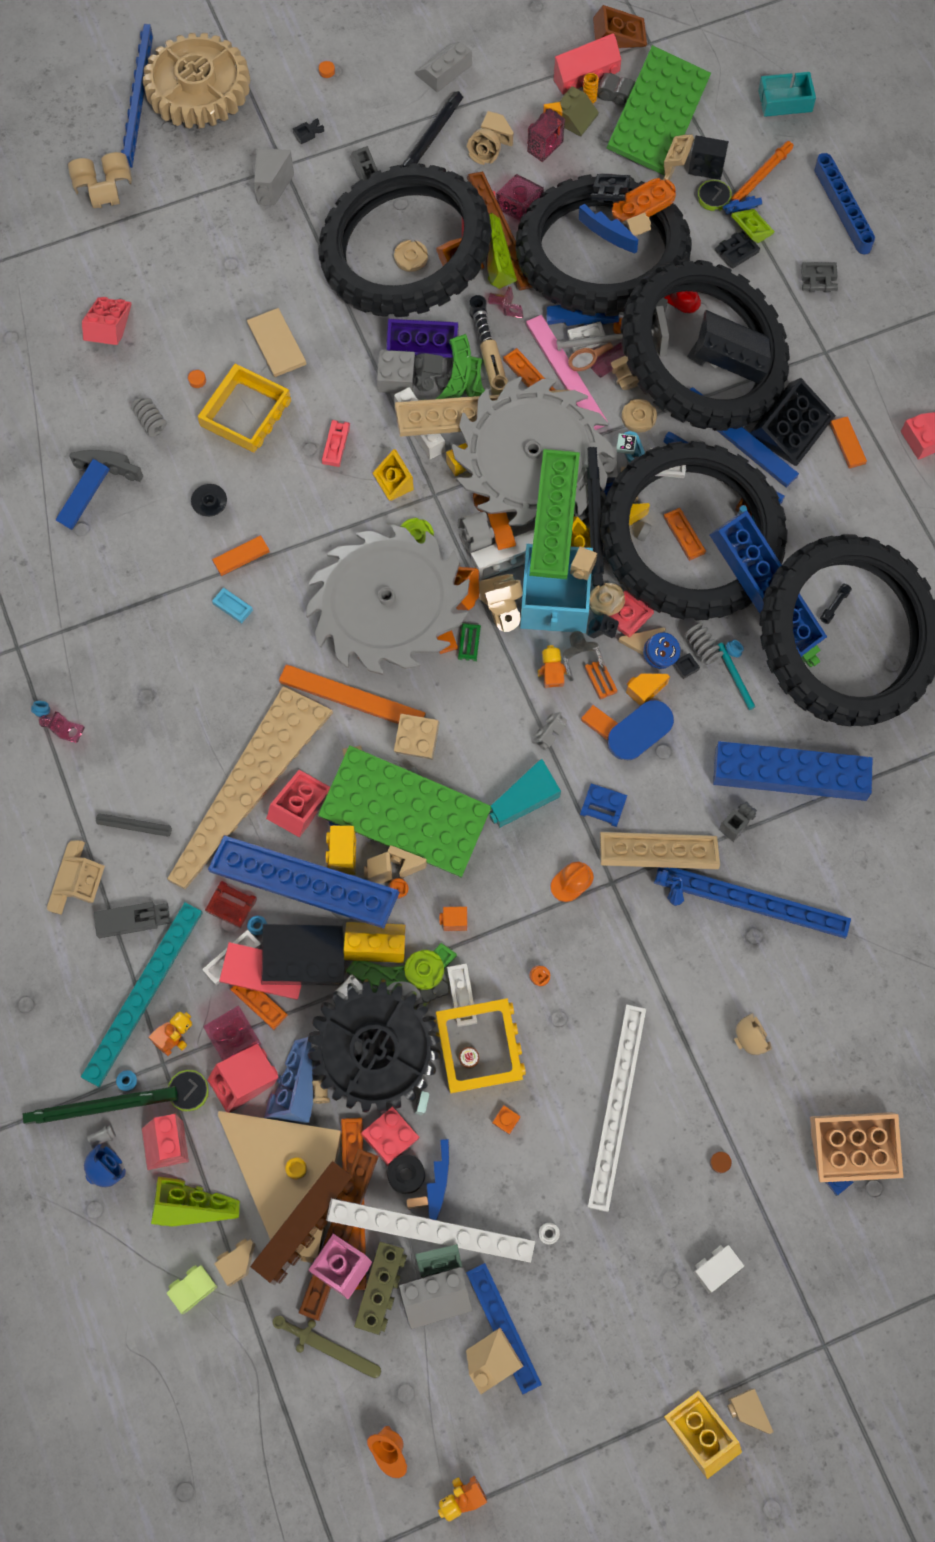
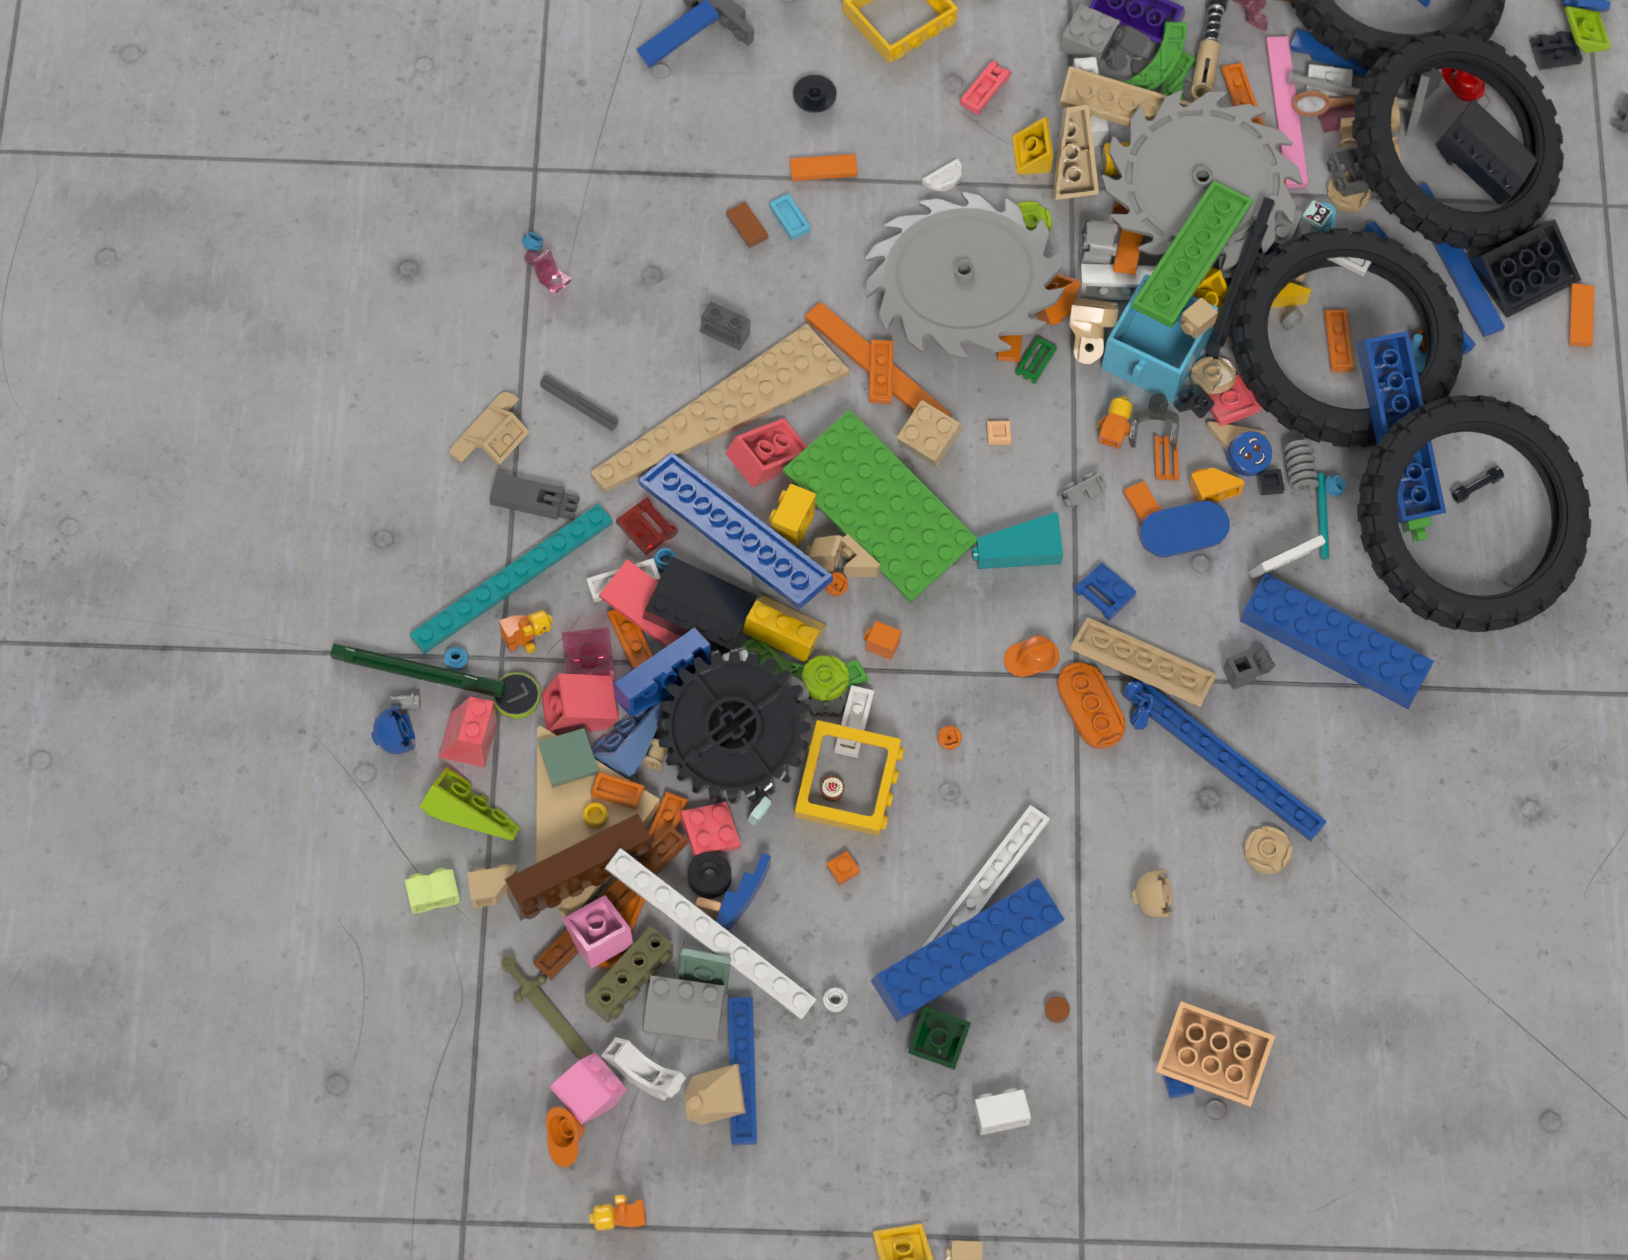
camera: 20 degrees right, 5 degrees down
(202, 625) = (747, 224): none -> dark orange tile
(221, 714) = (725, 325): none -> dark grey window
(253, 1129) = (568, 757): none -> sand green tile
(293, 1033) = (649, 681): none -> wedge
(304, 1139) = (617, 790): none -> orange tile
(337, 526) = (945, 177): none -> white tile
(357, 701) = (881, 371): none -> orange tile
(391, 1405) = (589, 1088): none -> bright pink slope
(427, 1367) = (642, 1071): none -> white arch
(430, 471) = (1075, 157): none -> tan wedge
(467, 712) = (998, 433): none -> light nougat tile
(634, 901) = (1091, 705): none -> orange tile
(634, 1149) = (967, 950): none -> blue brick
(638, 398) = (1346, 156): none -> dark grey window
(644, 1228) = (939, 1037): none -> dark green slope
(727, 721) = (1287, 557): none -> white tile
(817, 959) = (1267, 850): none -> tan tile

